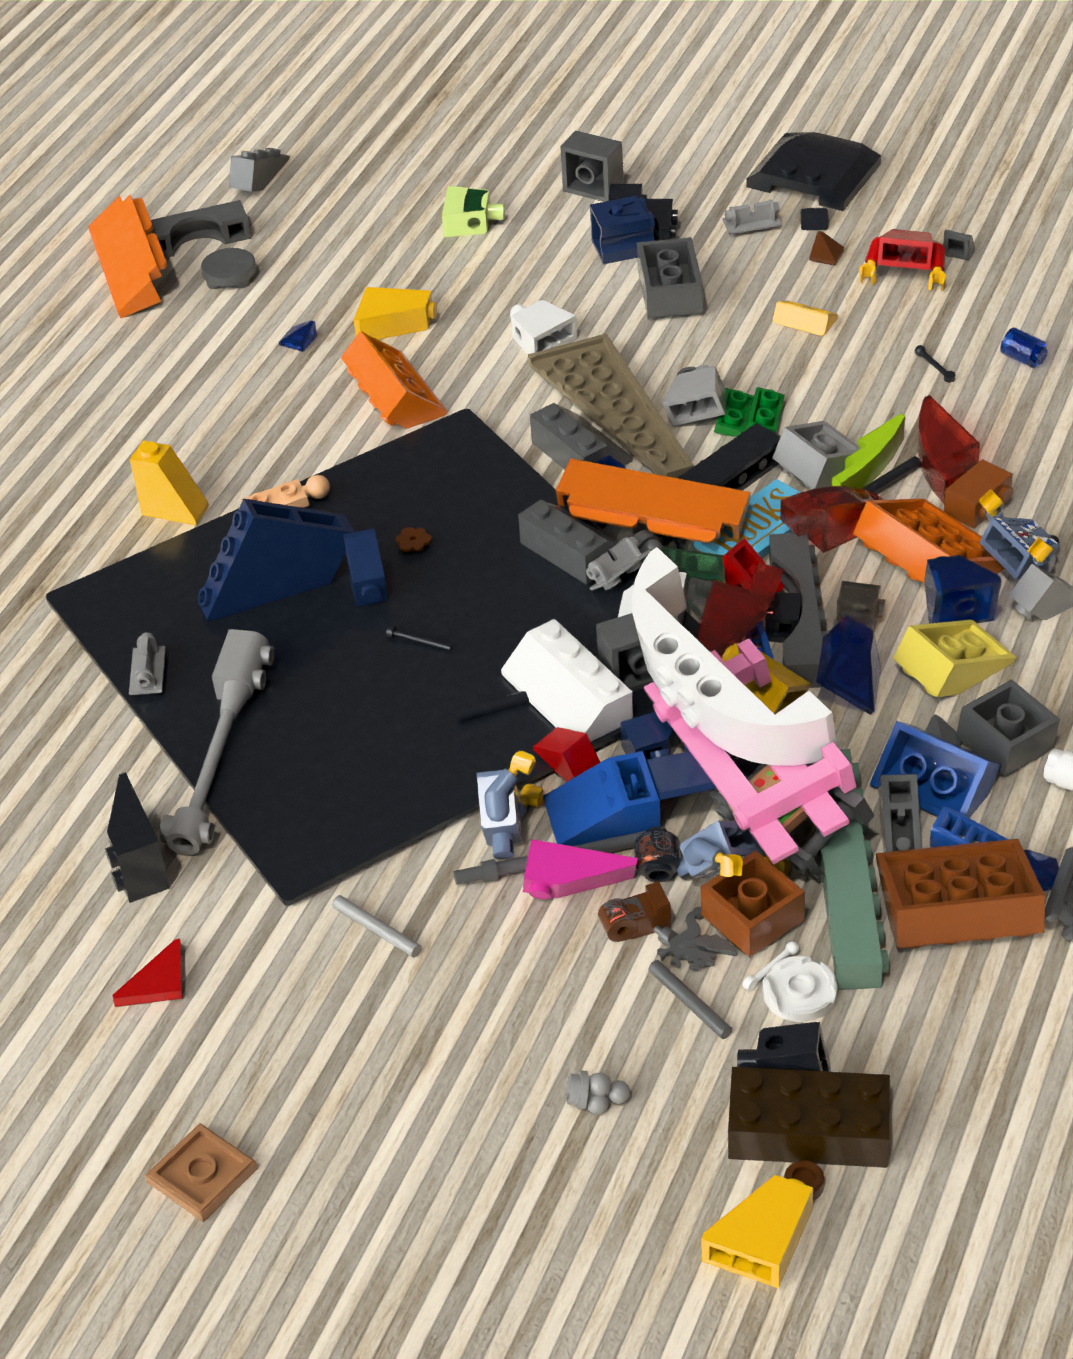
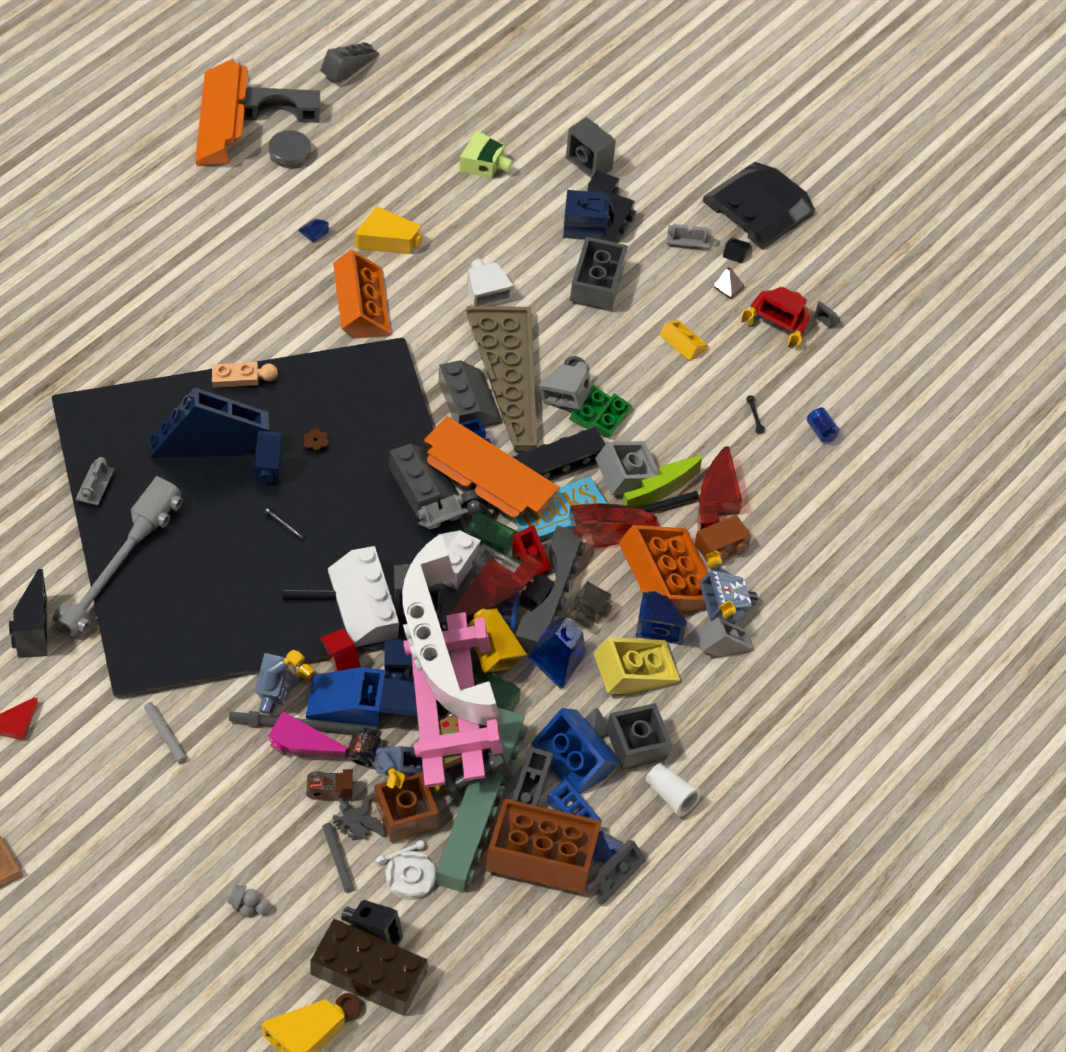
camera: 10 degrees right, 10 degrees up
(165, 485) = (164, 336): yellow slope -> none

